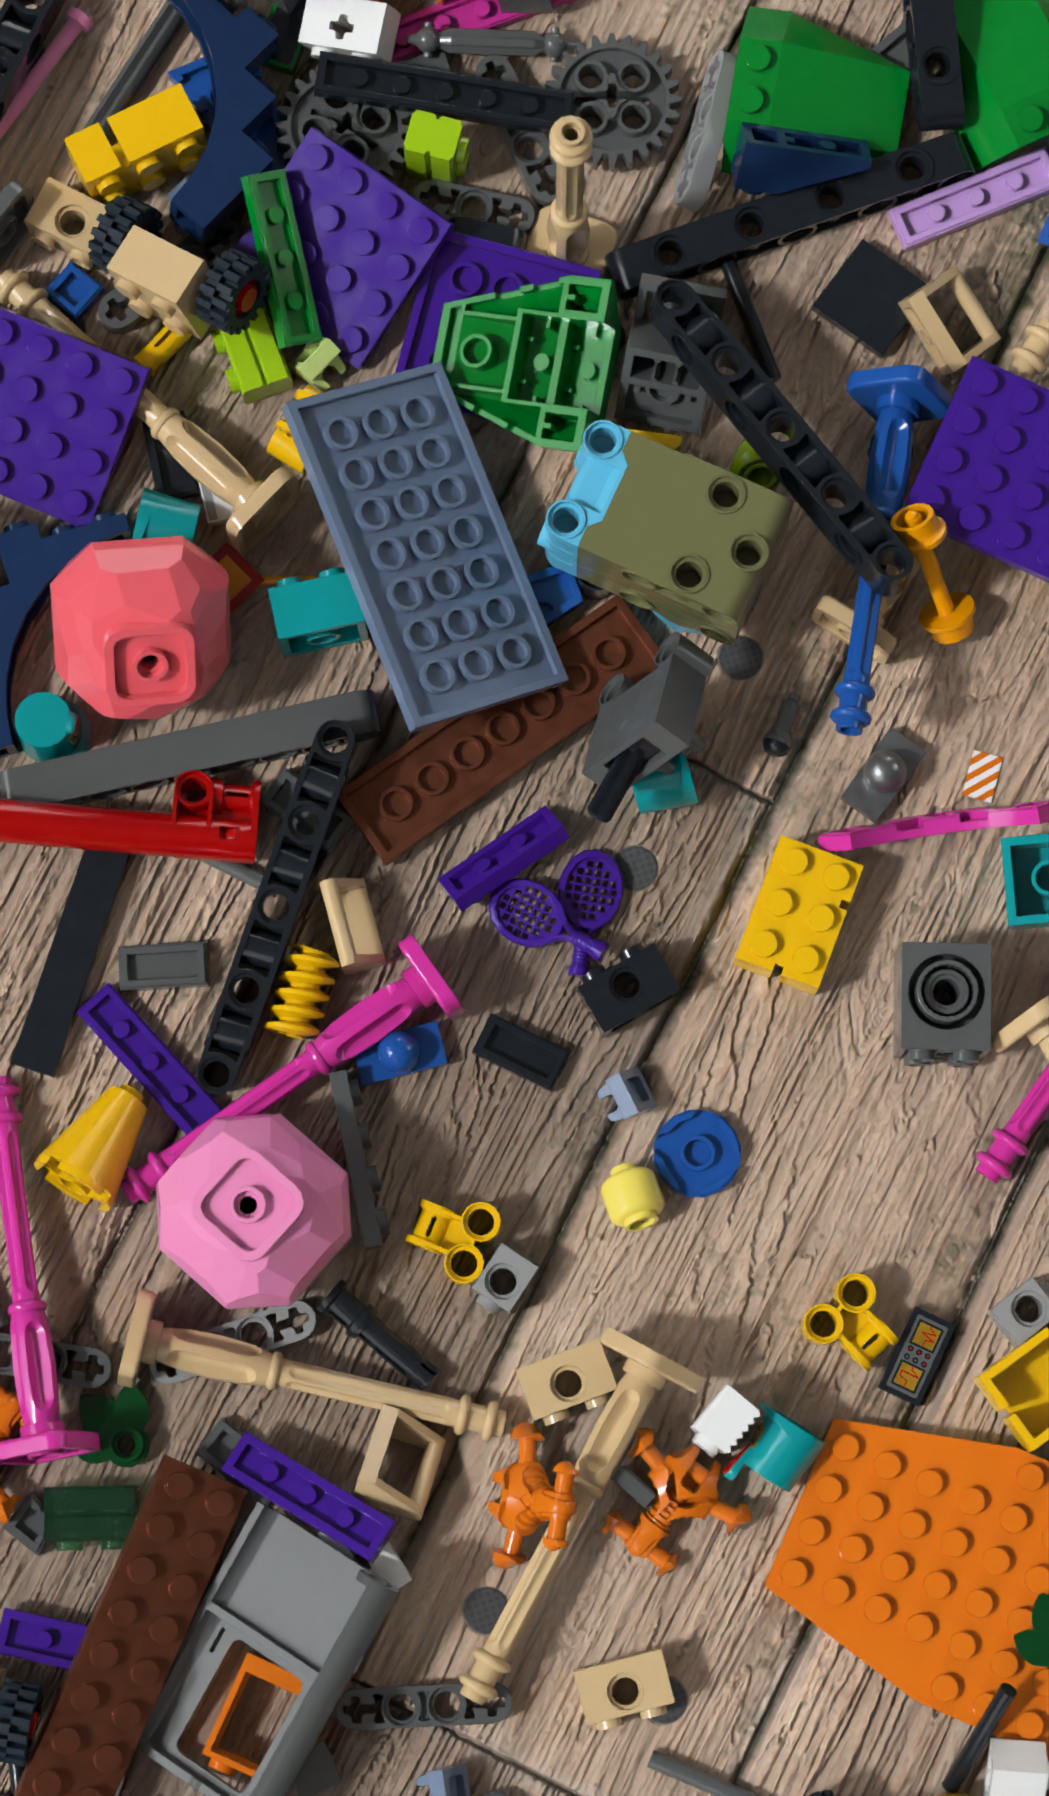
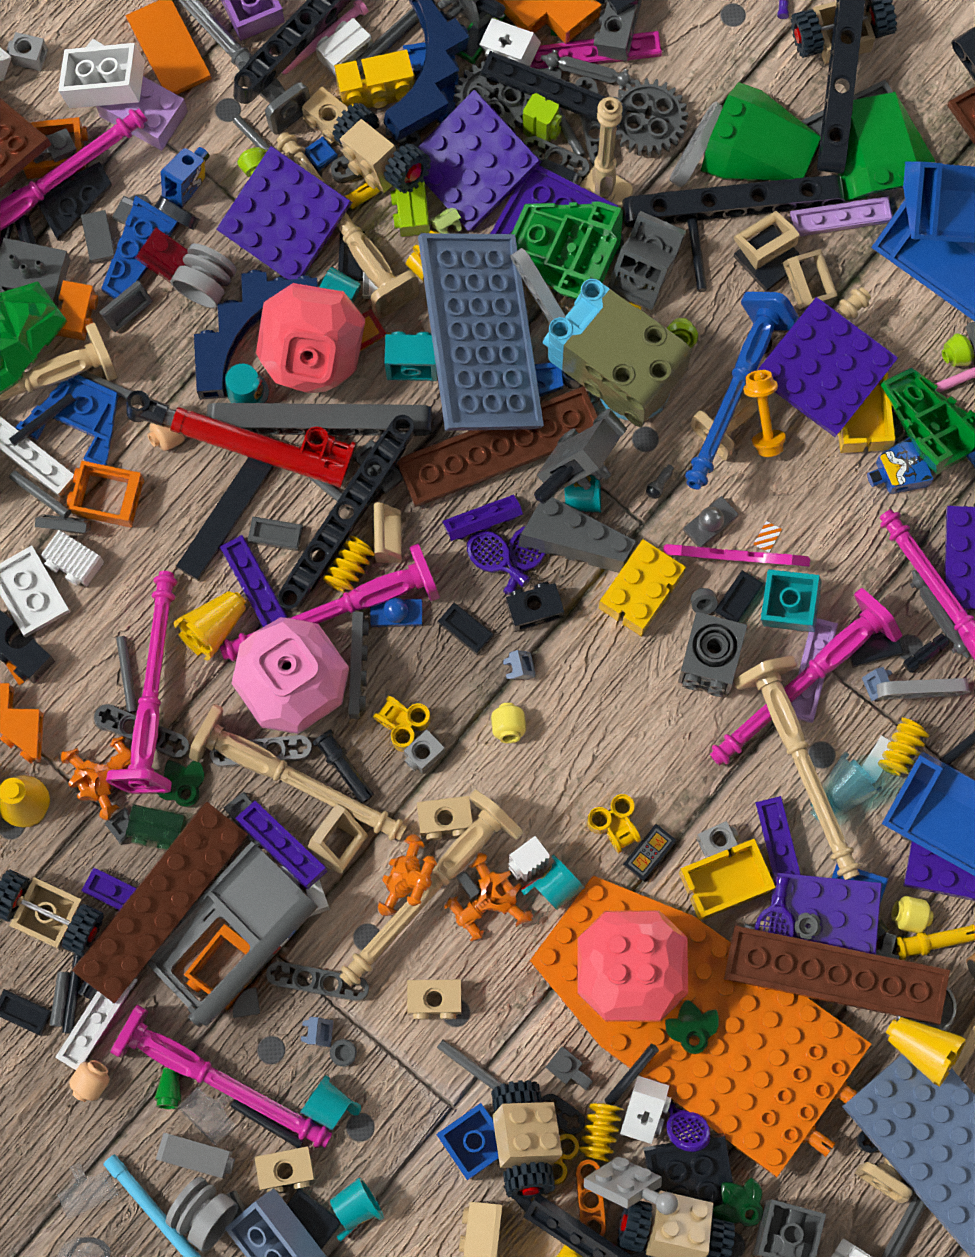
camera: 15 degrees right, 5 degrees down
(66, 95) = (344, 45): none -> white brick
(282, 251) = (440, 151): green tile -> none
(490, 165) = (570, 135): none -> dark grey piece
(505, 447) = (536, 285): none -> light grey beam
(669, 855) = (576, 536): none -> dark grey wedge
(697, 1153) = (551, 708): blue tile -> none
(788, 159) = (738, 168): dark blue slope -> none
(800, 463) = (701, 331): black beam -> none
(859, 303) = (773, 248): none -> tan tile
(867, 1747) = (566, 1067): none -> dark grey plate
(905, 913) = (704, 601): none -> dark grey tile
(945, 1568) = (632, 966): none -> coral rock
(959, 893) = (738, 597): none -> black tile

